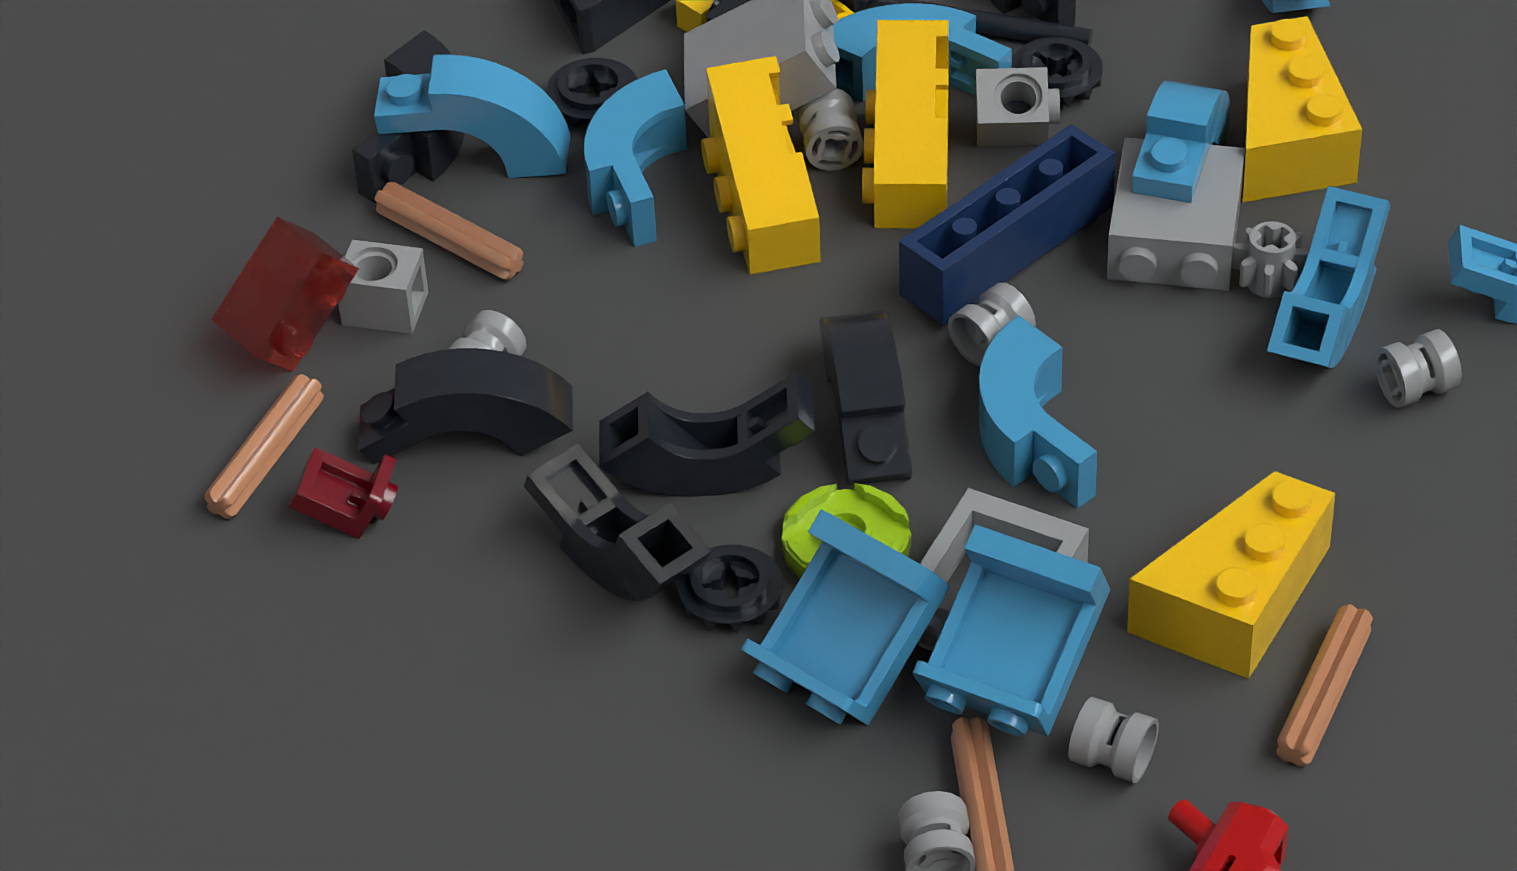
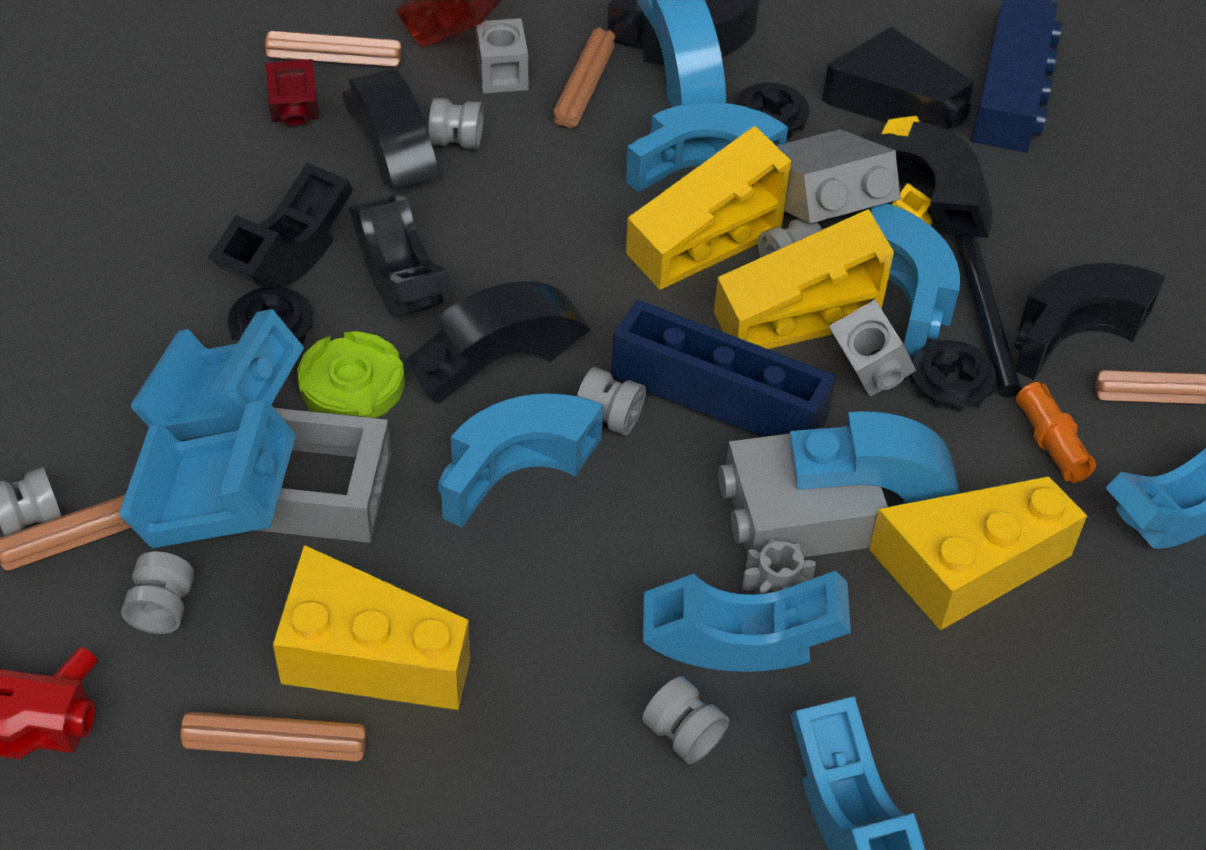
camera: 65 degrees right, 5 degrees up
(1163, 22) = (1055, 432): none -> orange pin

